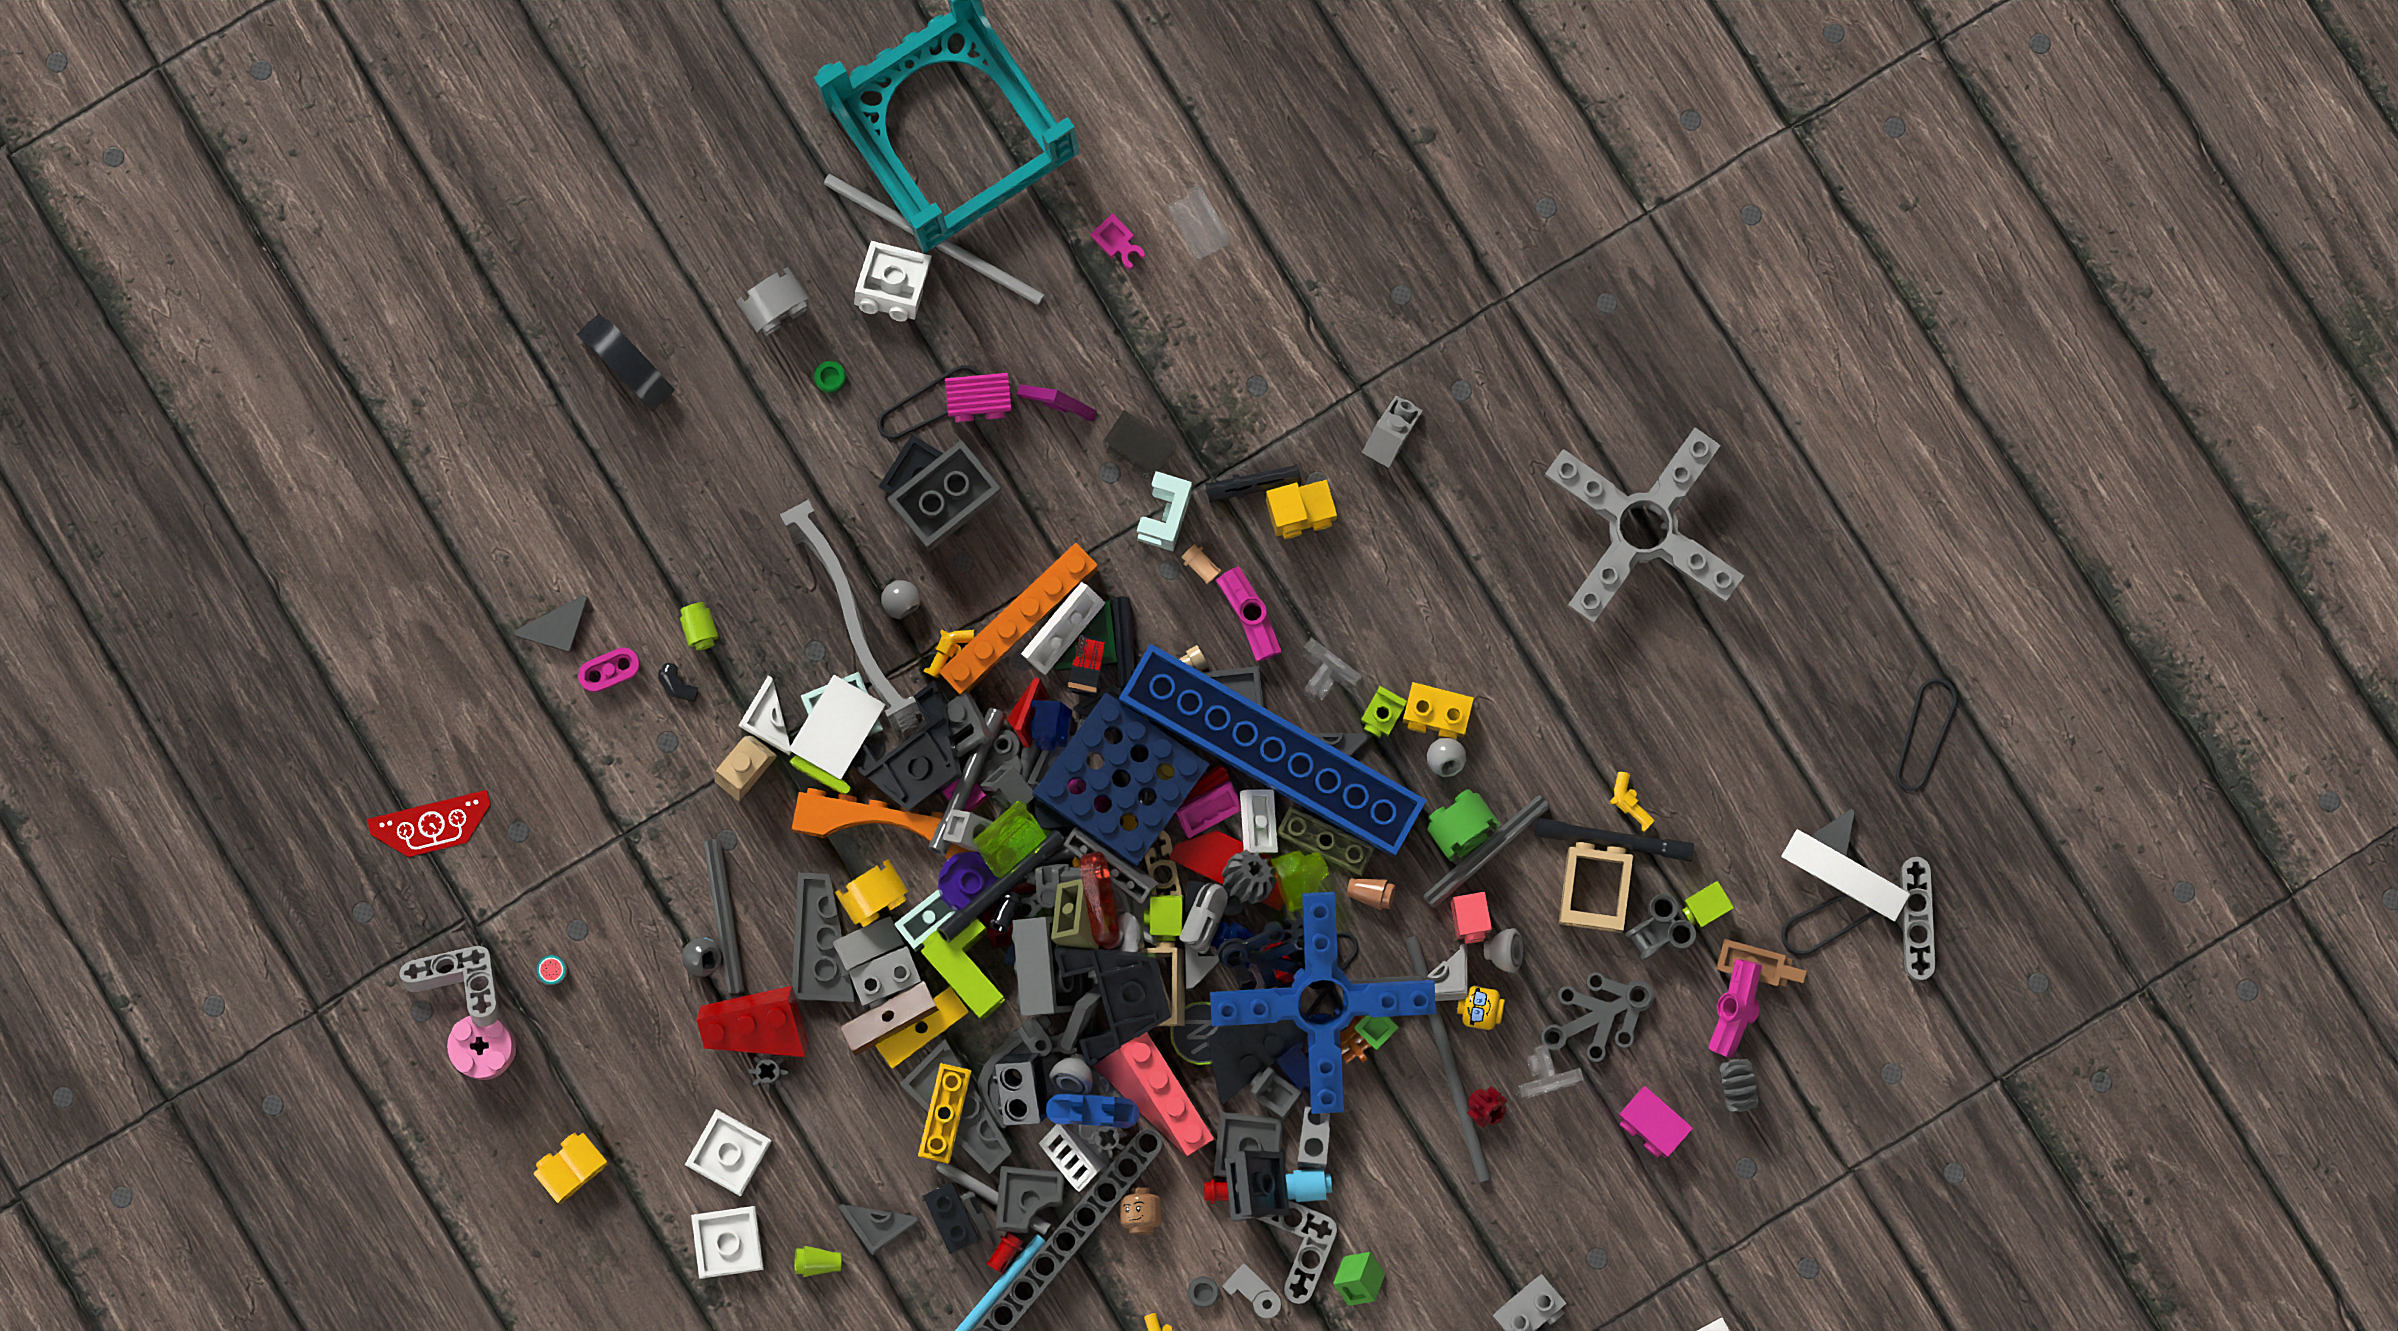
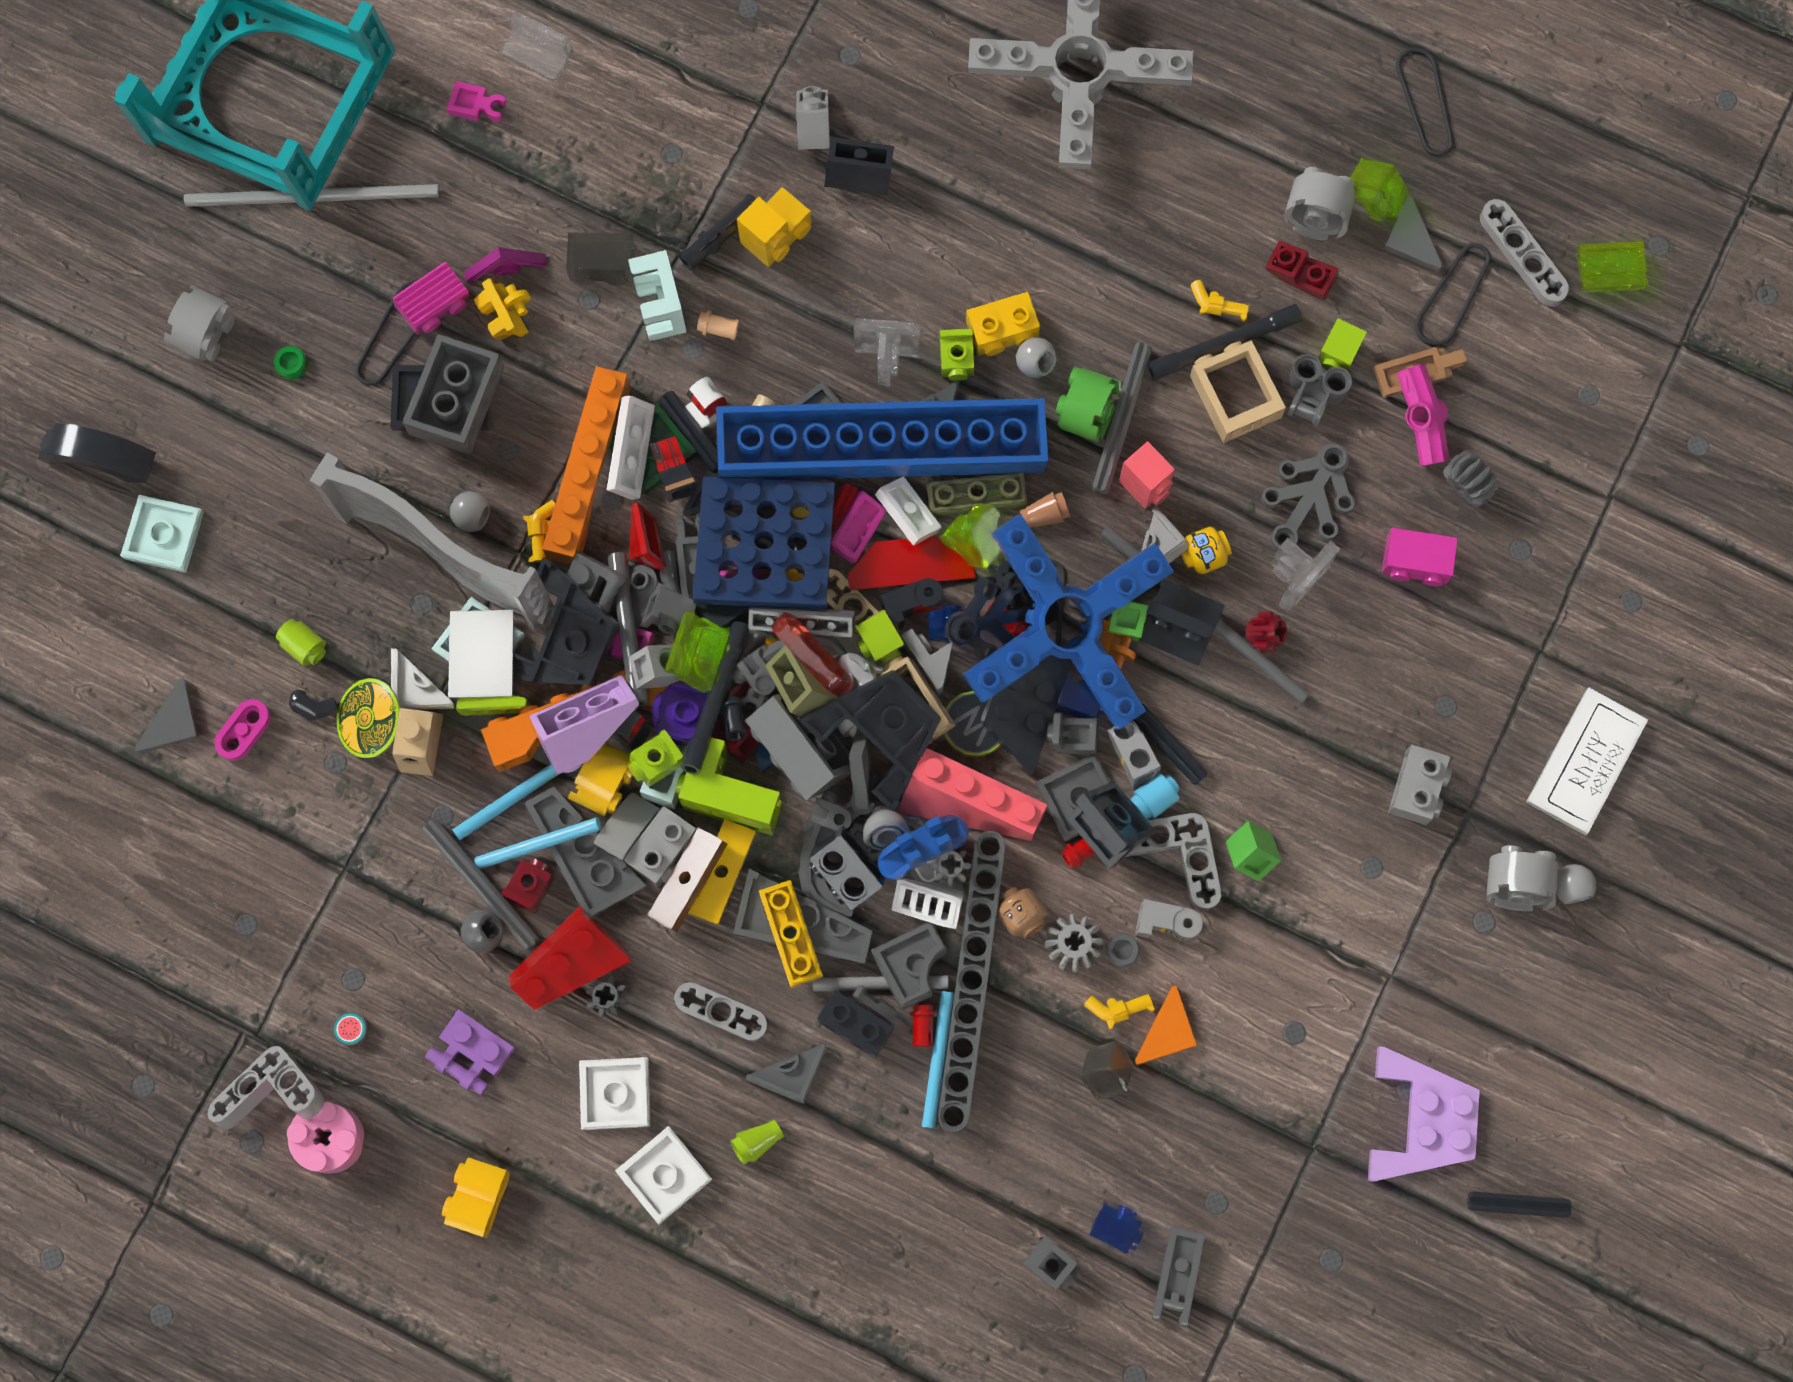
camera: 30 degrees left, 5 degrees down
(431, 825) = (160, 968): red sticker -> none
(640, 461) = (162, 533): none -> light aqua tile
(643, 1044) = (477, 1044): none -> medium lavender plate
(715, 724) = (368, 718): none -> shield
(756, 953) = (532, 896): none -> dark red brick
(788, 913) = (538, 843): none -> medium azure bar
(791, 860) = (505, 802): none -> medium azure bar
(845, 1116) = (747, 1014): none -> light grey beam
(883, 841) = (583, 723): none -> lavender slope
(892, 281) = (295, 248): white plate -> none
(919, 865) = (633, 731): none -> black leg
(934, 908) = (650, 771): none -> lime brick
(1037, 440) = (508, 305): none -> yellow hips
(1050, 724) = (671, 534): clear blue brick -> none
(1148, 628) = (704, 402): none -> white leg
(1163, 1251) = (1083, 949): none -> light grey gear
(1204, 917) = (915, 616): light grey arm -> none
(1249, 877) = (931, 560): dark grey gear -> none
(1258, 632) = (770, 331): dark pink piece -> none
(1349, 1151) = (1171, 746): none -> black axle
(1403, 499) = (859, 166): none -> black brick
(1422, 1054) = (1181, 622): none -> black bracket
(1505, 950) = (1193, 490): light grey brick -> none
(1720, 817) = (1301, 271): none -> dark red slope
(1768, 773) = (1320, 204): none -> light grey brick
(1827, 789) = (1379, 188): none -> clear neon green brick
(1845, 875) = (1442, 249): white slope -> none
(1983, 977) = (1612, 266): none -> clear neon green plate

